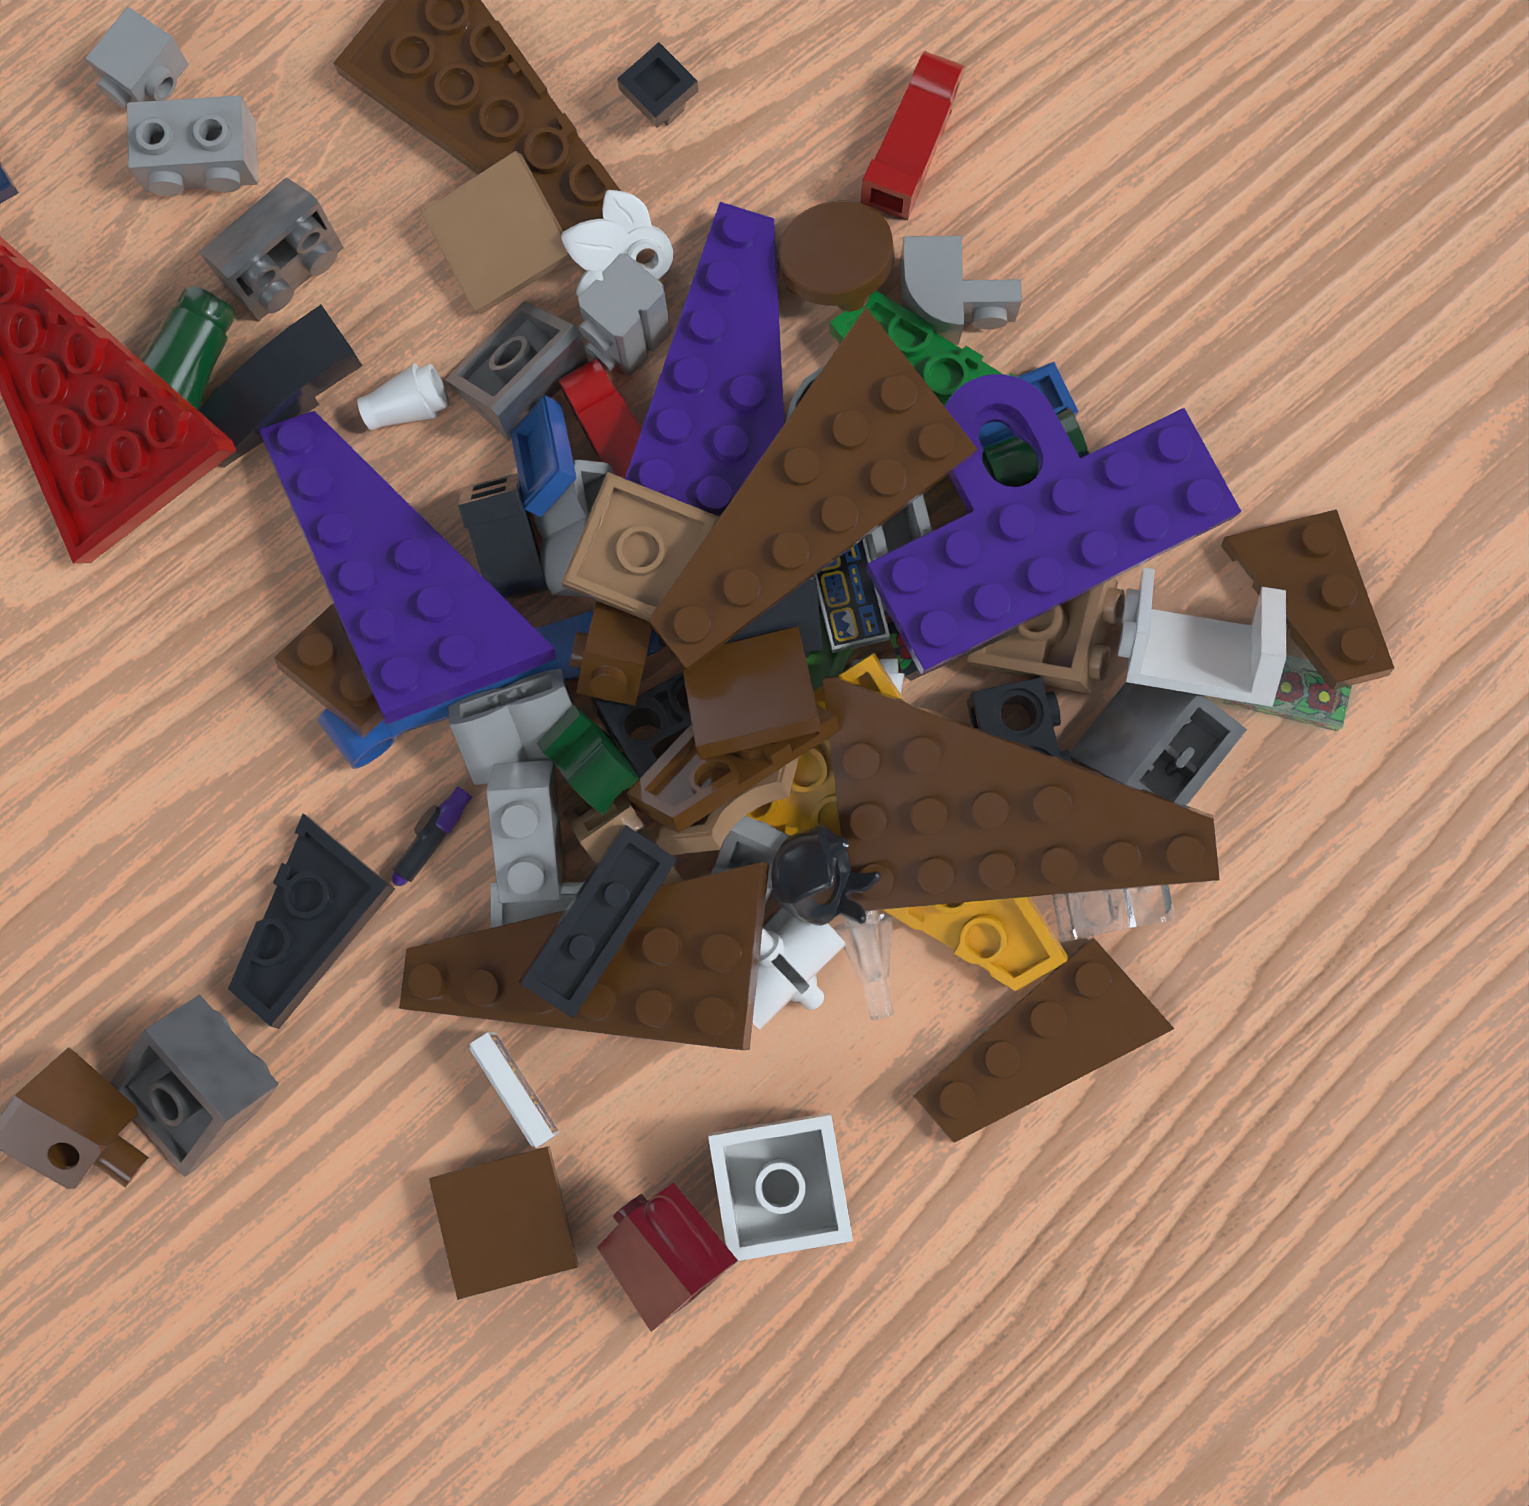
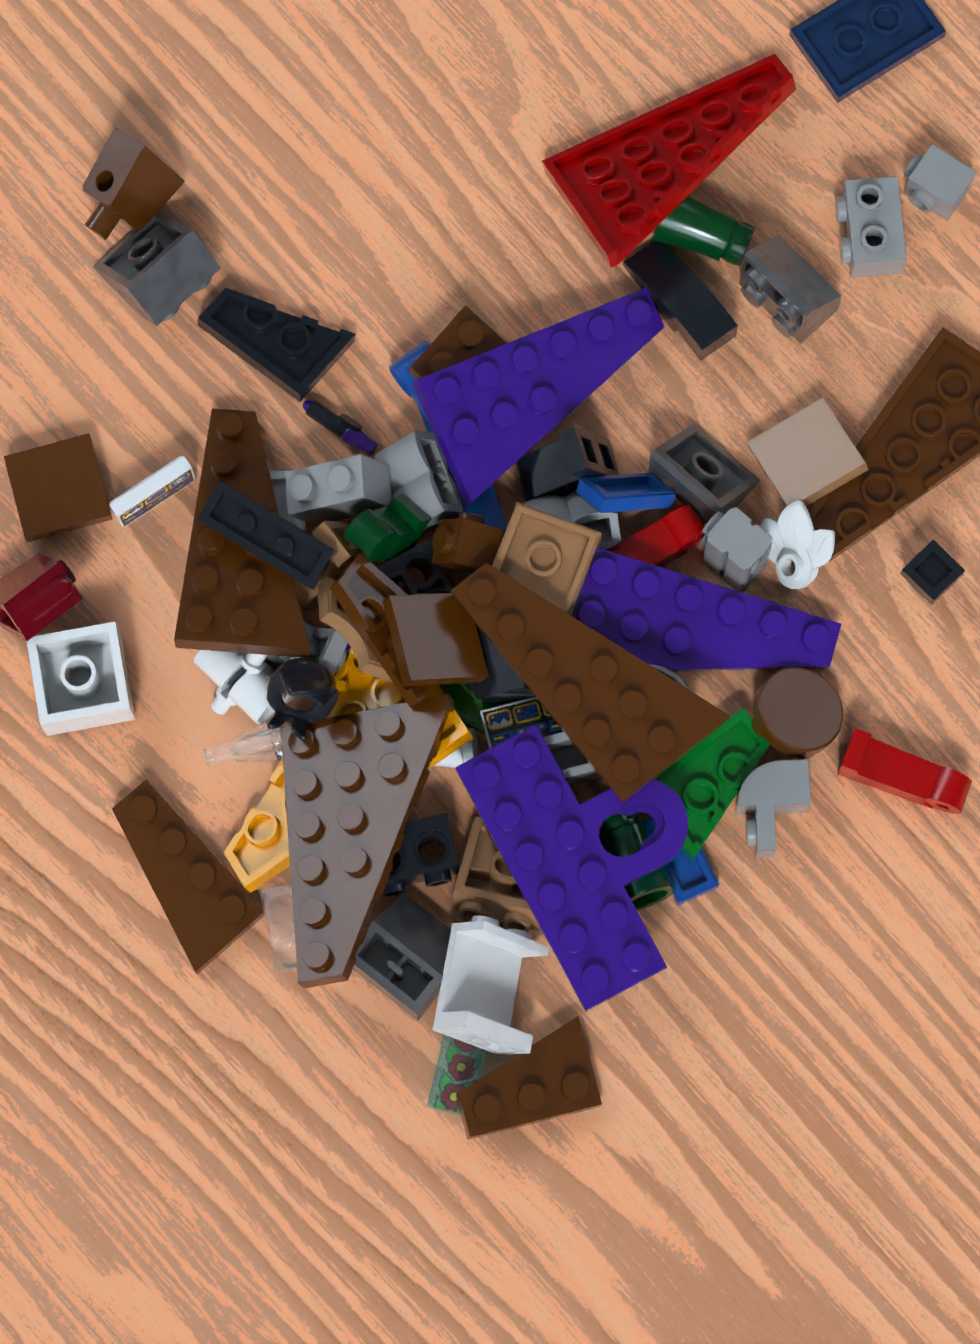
camera: 90 degrees right, 5 degrees down
(406, 398) = (675, 394): white cone -> none

